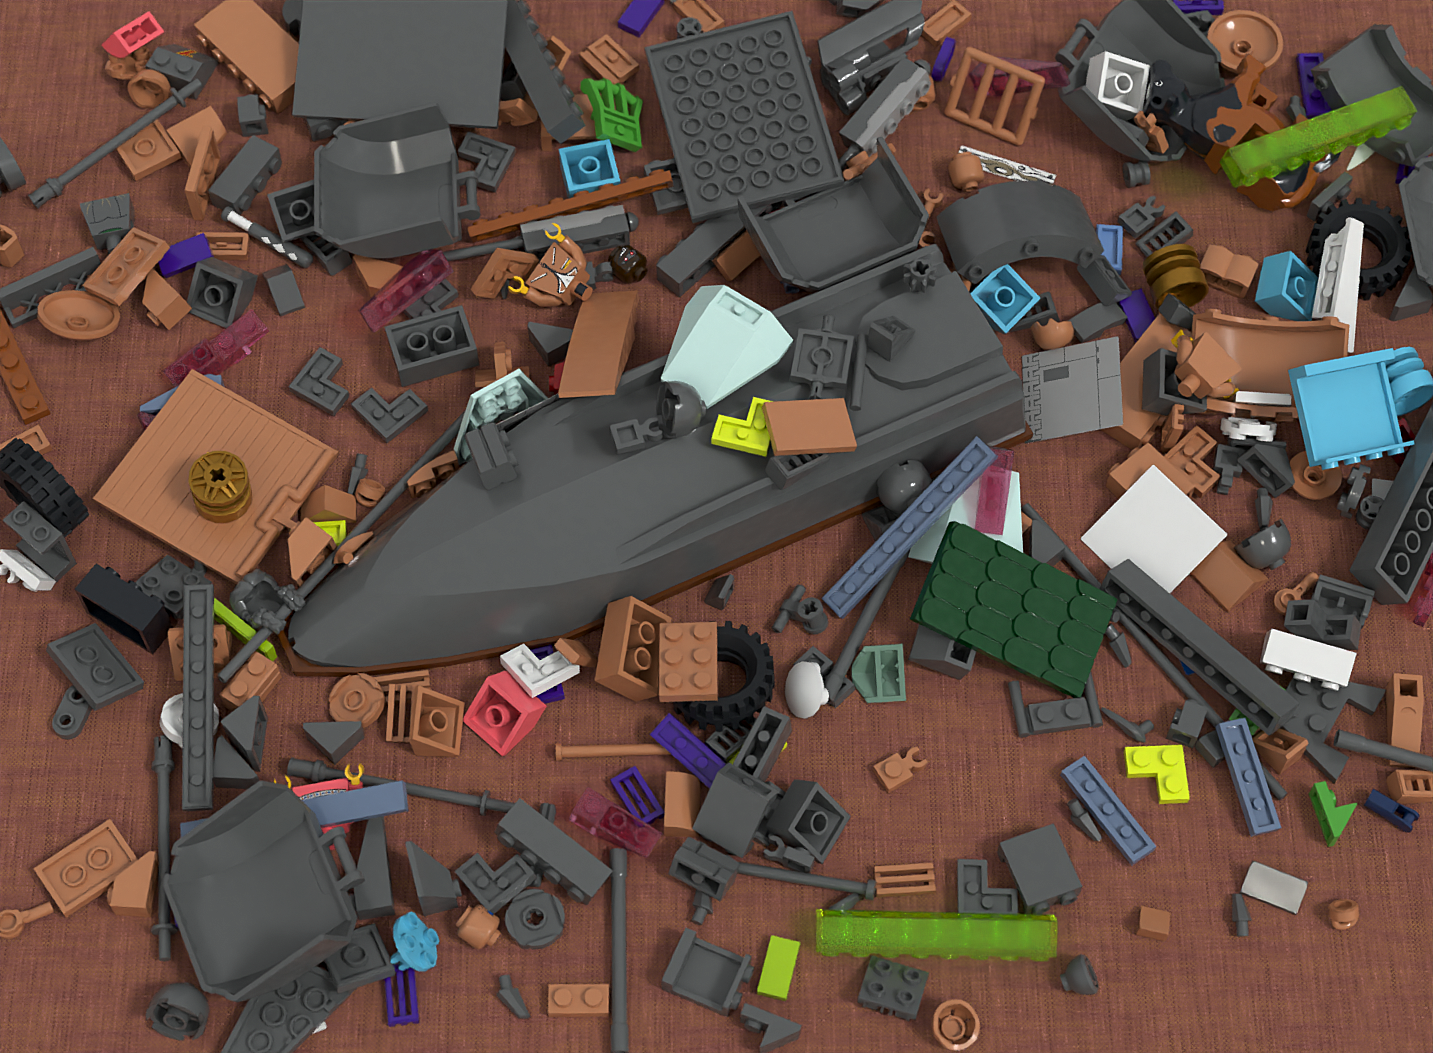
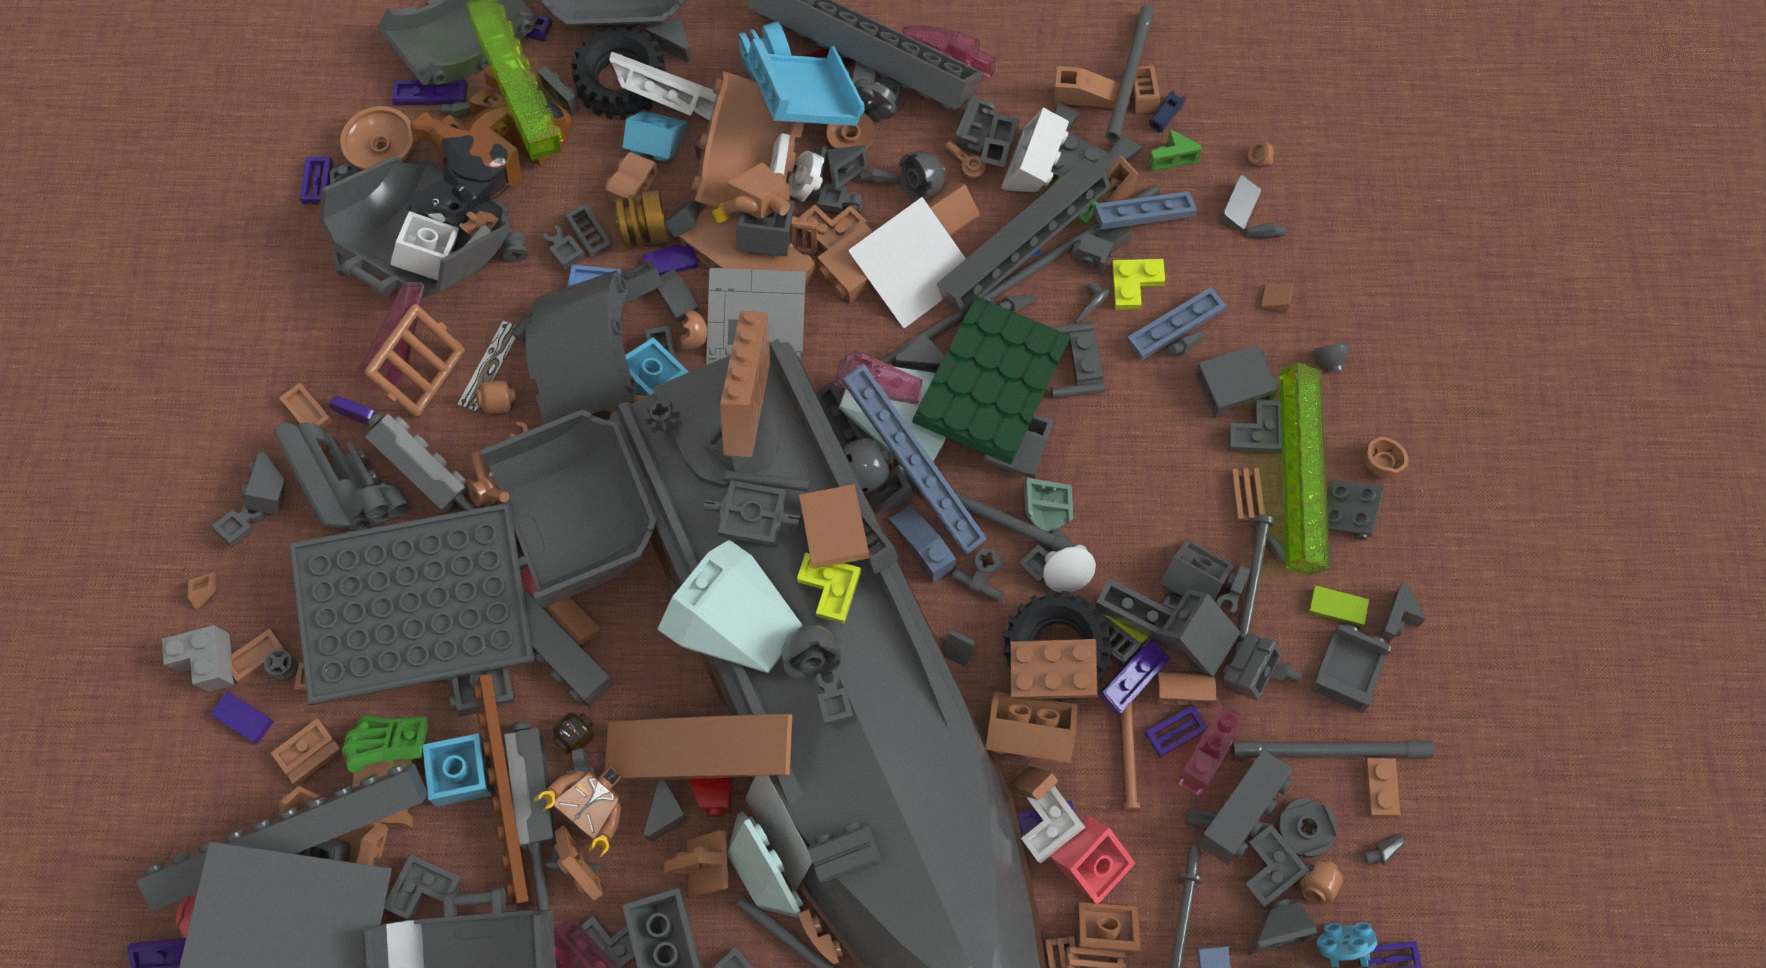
camera: 85 degrees left, 5 degrees up
(829, 557) = (924, 543): none -> sand blue slope
(897, 771) = (1140, 496): nougat plate -> none
(943, 325) = (745, 384): none -> nougat brick

